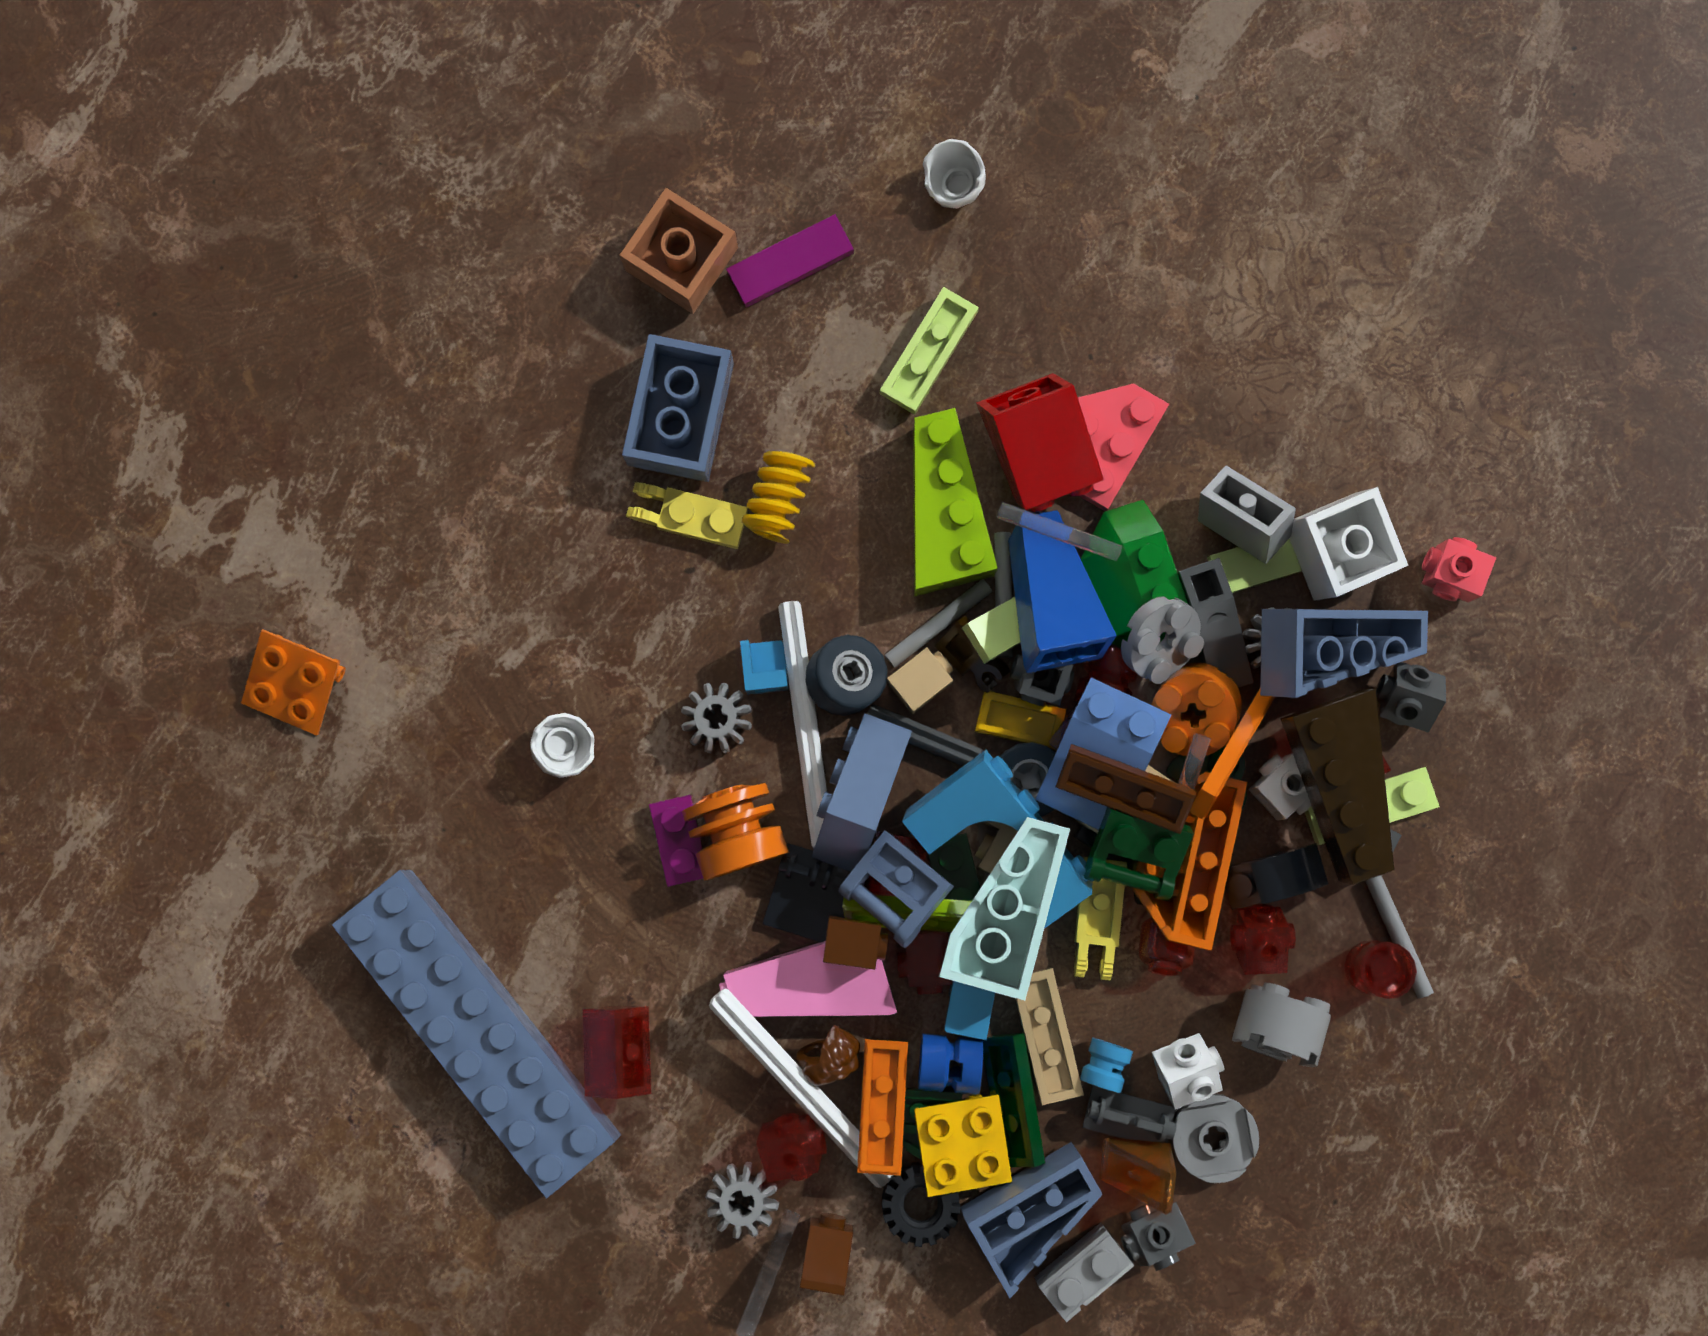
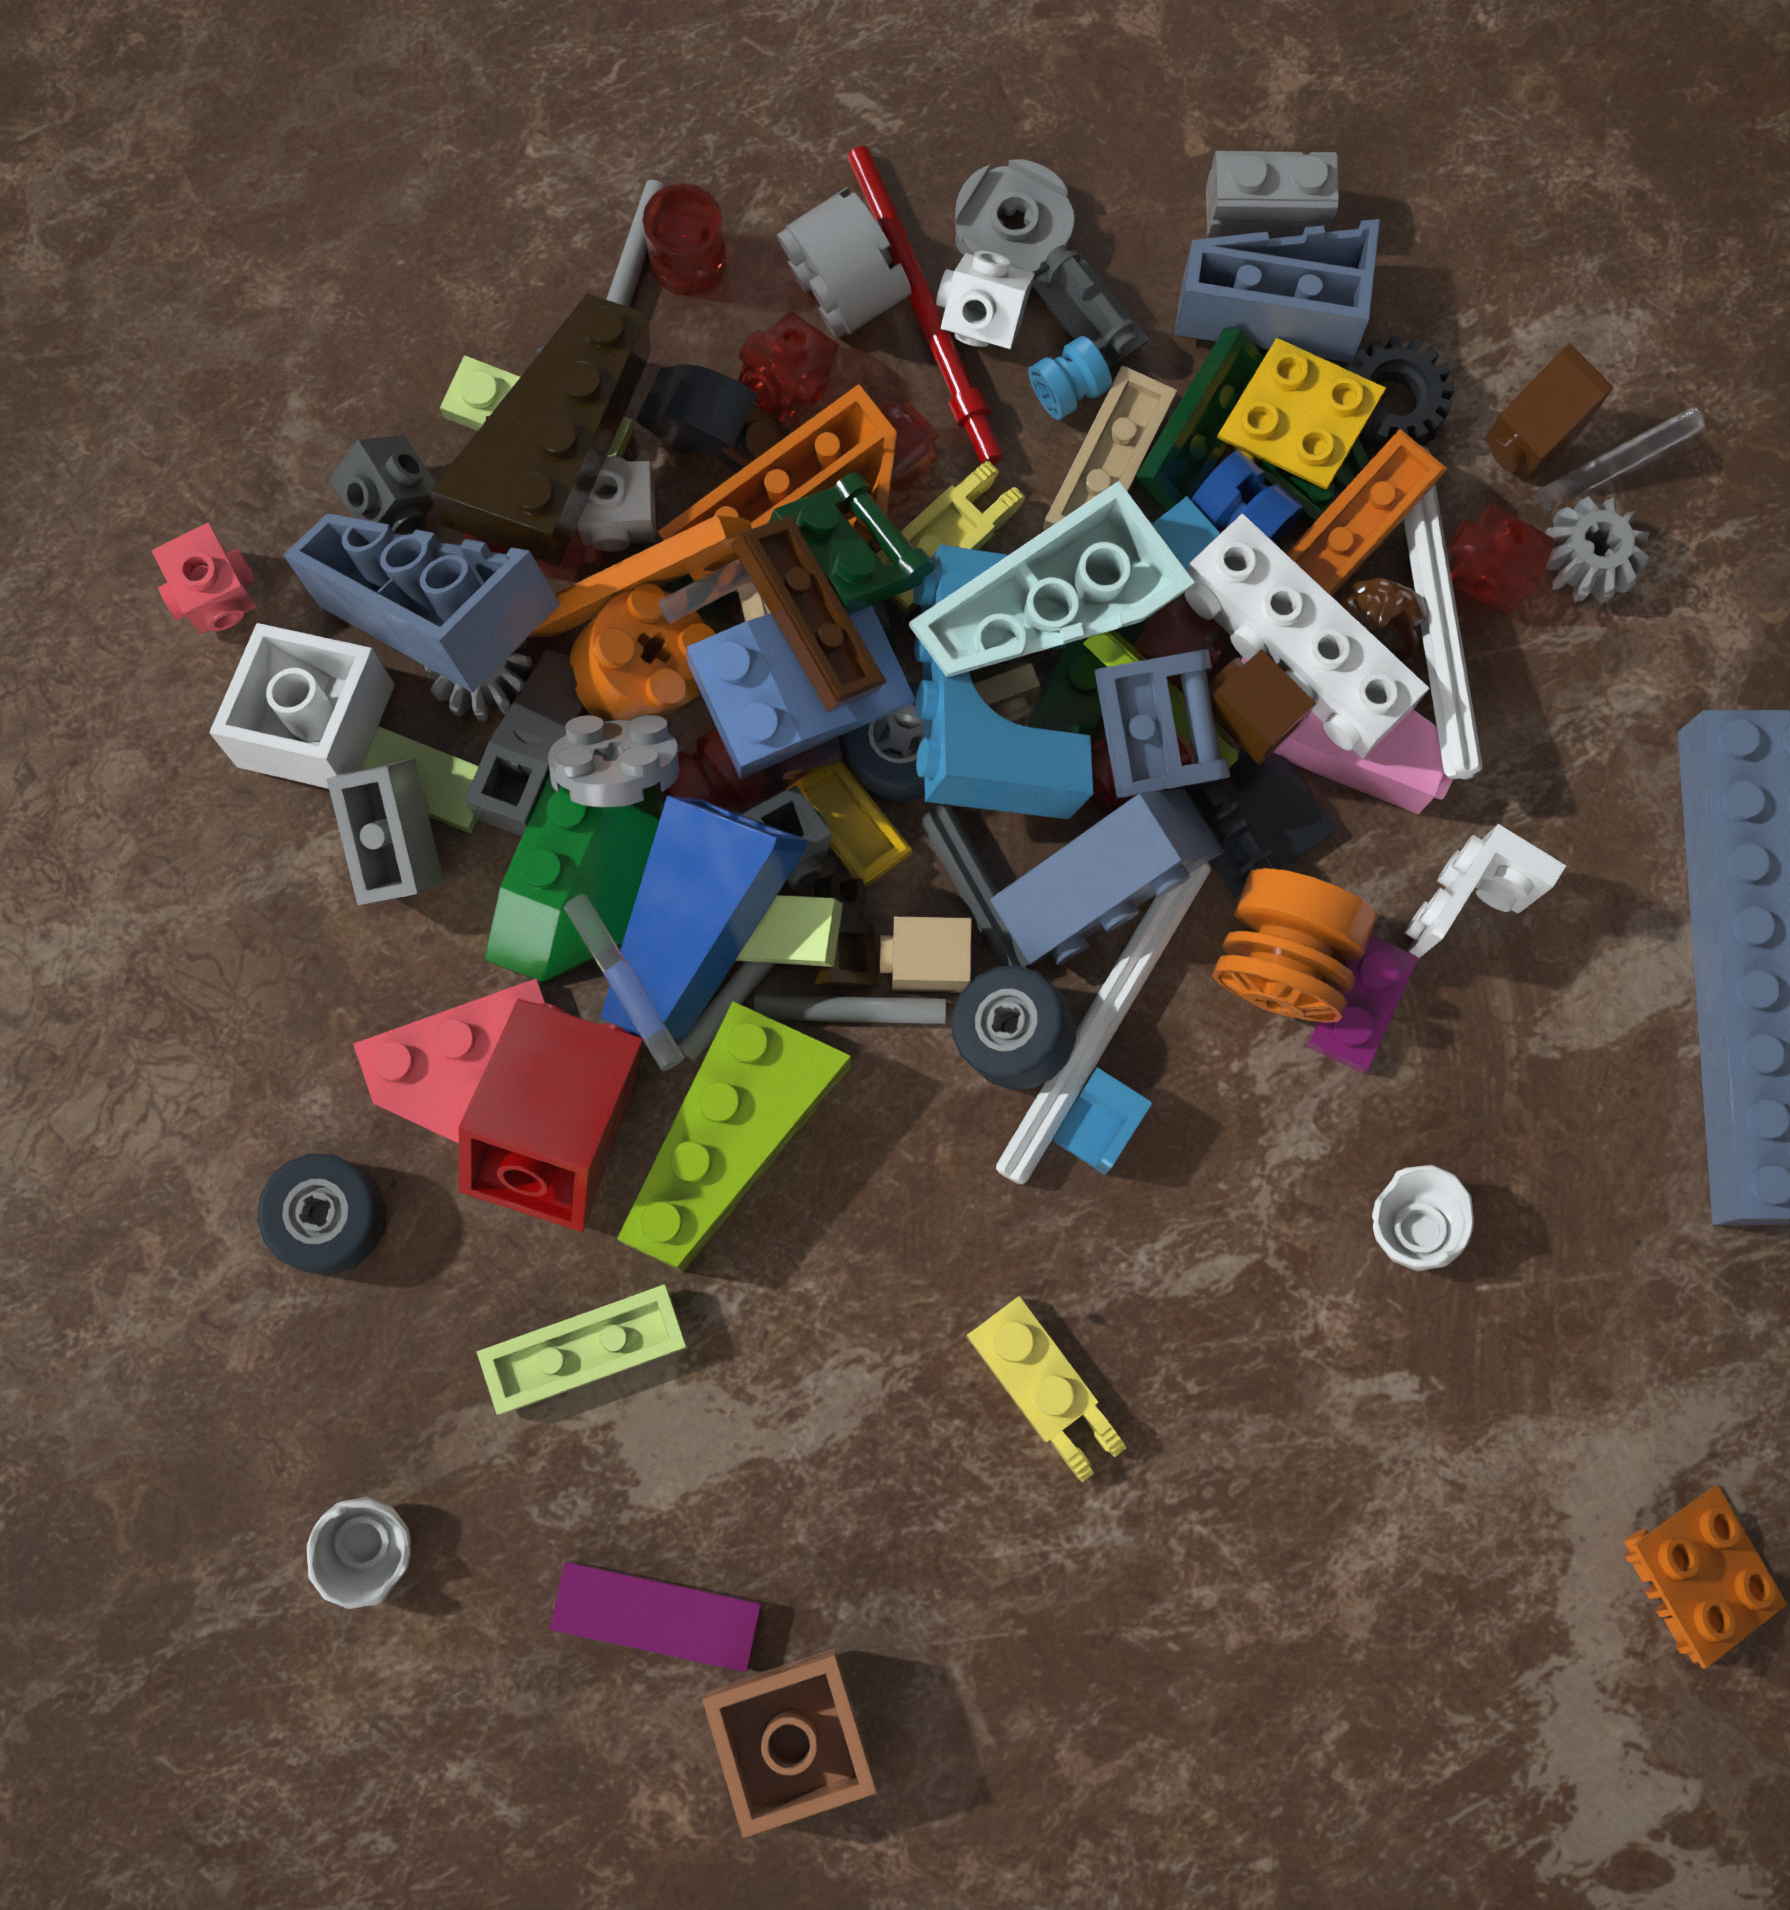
camera: 145 degrees left, 5 degrees down
(616, 1051) = (1622, 813): clear red brick -> none
(653, 961) = (1504, 871): none -> white bracket
(678, 408) = (956, 1529): sand blue brick -> none
(705, 726) = (1230, 1112): light grey gear -> none
(776, 494) = (920, 1315): yellow piece -> none
(860, 1001) = (1280, 609): none -> white brick
(1103, 325) = (344, 1216): none -> black wheel
(1140, 1170) = (1123, 240): clear orange slope -> none
(1149, 1005) = (967, 402): none -> red bar
(1170, 1232) = (1163, 168): dark grey brick -> none

